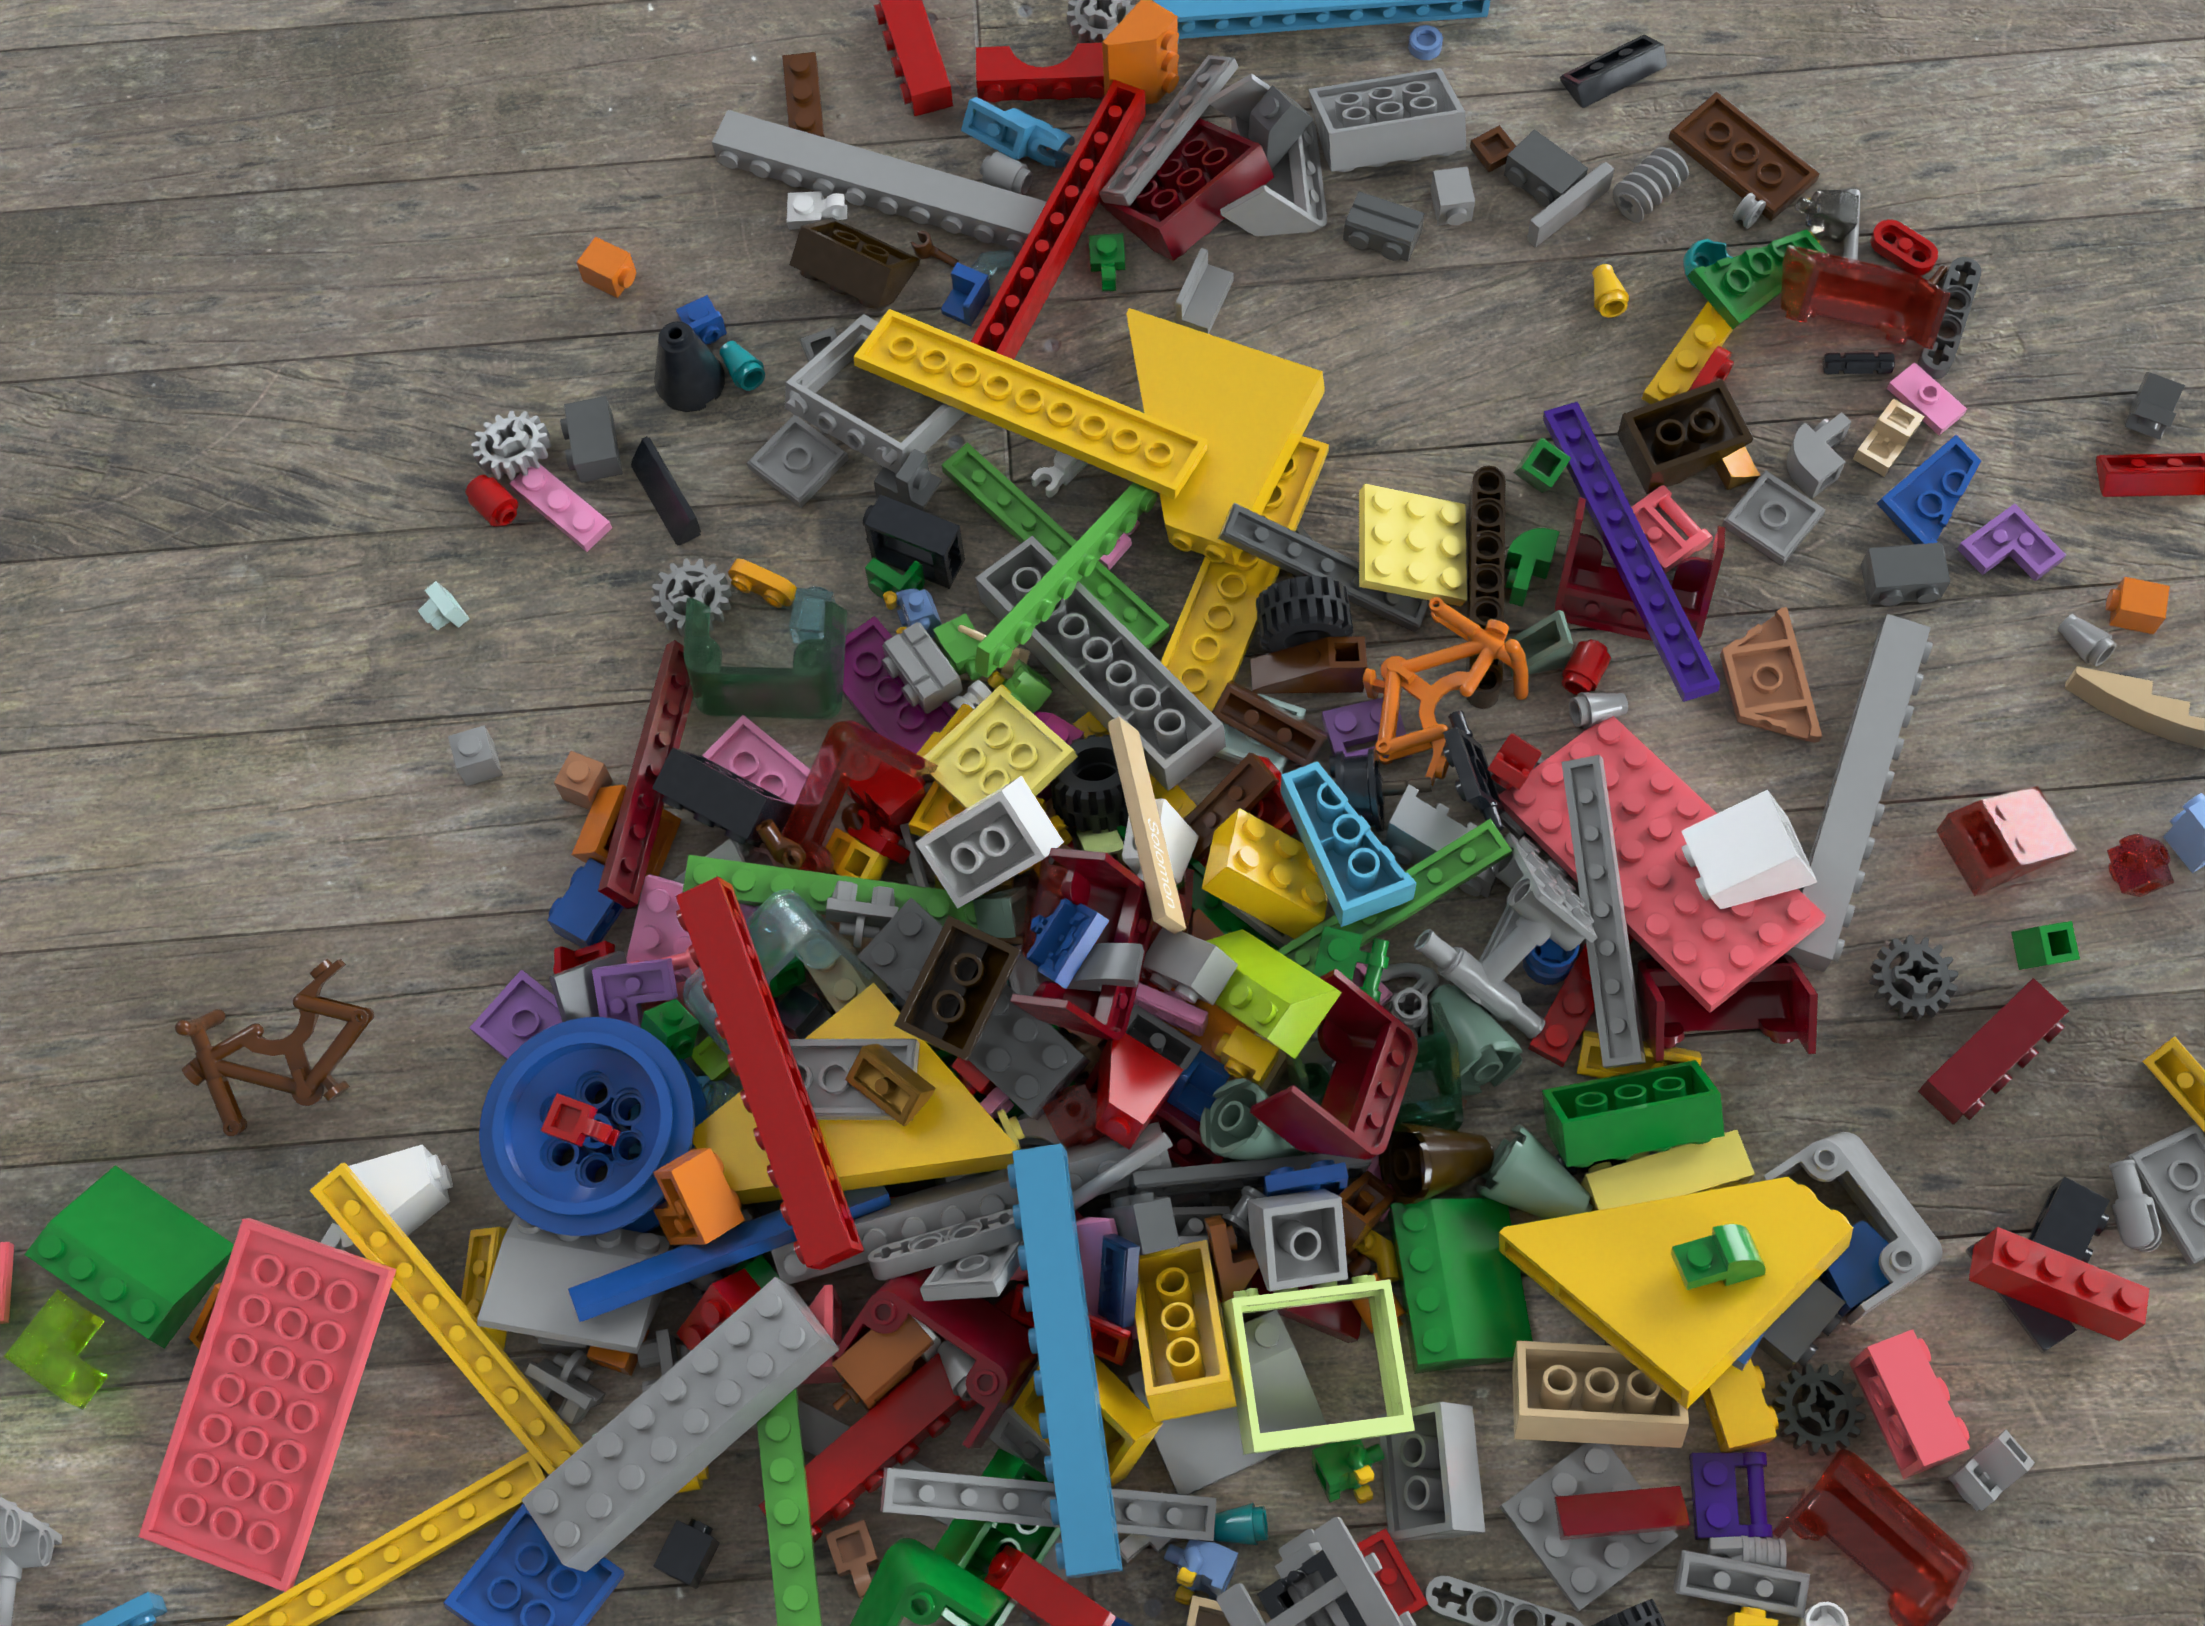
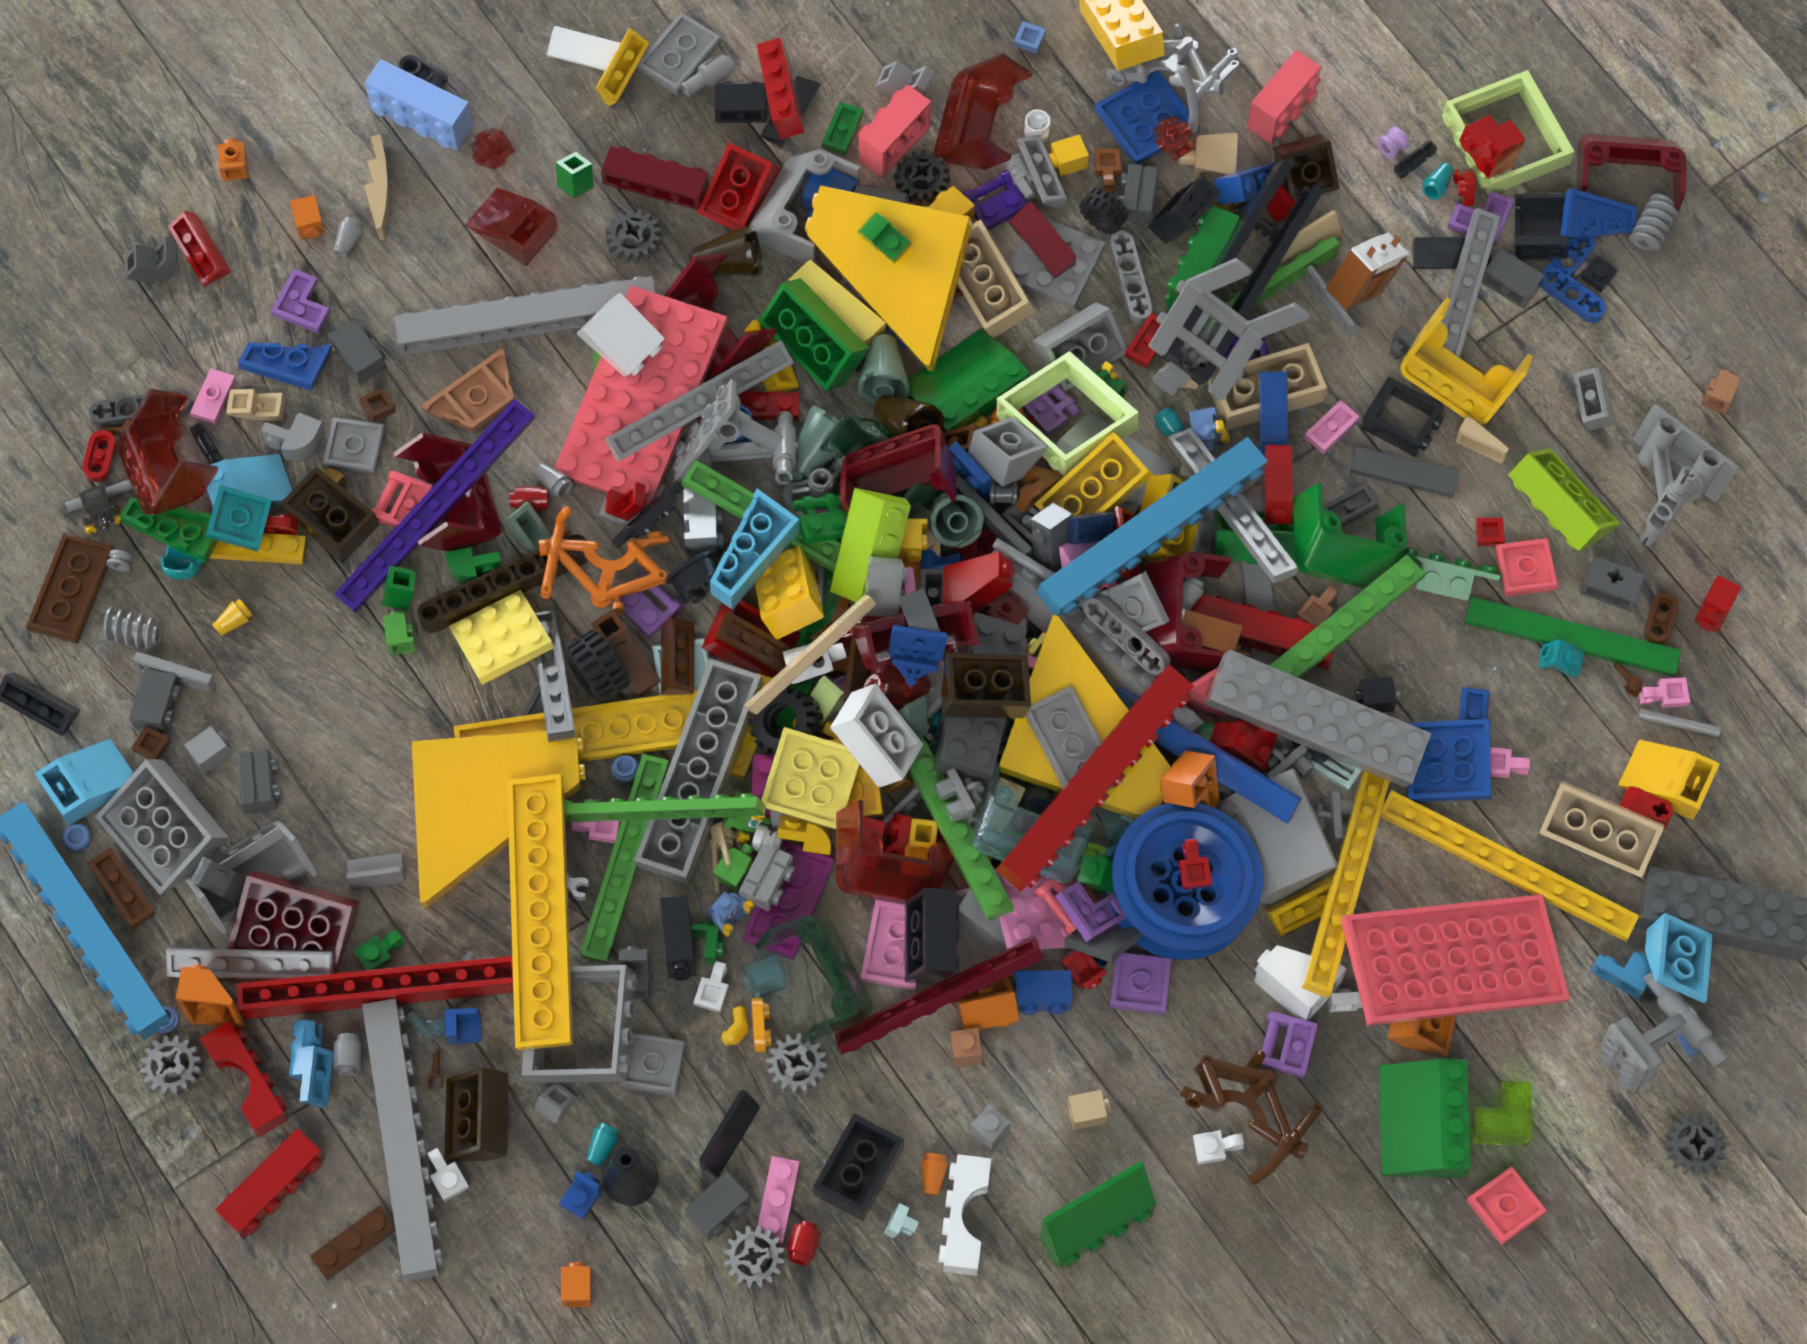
camera: 125 degrees left, 0 degrees up
(279, 992) = (1212, 1147): none -> white plate
(291, 804) = (1098, 1216): none -> green slope
(319, 1151) = (1296, 1045): none -> medium lavender plate
(369, 655) = (962, 1249): none -> white arch
(421, 874) = (1088, 1109): none -> tan brick
(474, 674) = (933, 1172): none -> orange cone
(528, 592) = (858, 1167): none -> black brick
(774, 561) = (738, 1029): none -> yellow arm
(781, 848) = (946, 871): reddish brown arm -> none
(835, 556) = (712, 991): none -> white plate
(889, 1083) = (1059, 705): pearl gold slope -> none
(1167, 602) = (625, 768): none -> medium blue plate
(1337, 54) = (121, 888): none -> reddish brown plate
(1355, 1365) = (1047, 414): none -> medium lavender plate
(1486, 64) = (84, 779): none -> medium azure slope
(1486, 444) = (399, 633): none -> bright green brick
(1725, 326) = (238, 518): none -> teal plate
(1777, 373) = (254, 475): none -> medium azure slope
(1815, 563) = (377, 405): none -> reddish brown plate
(1817, 1085) = (740, 252): none -> dark brown cone
(1926, 1153) = (738, 187): none -> red slope
(1956, 1346) = (842, 128): none -> green plate

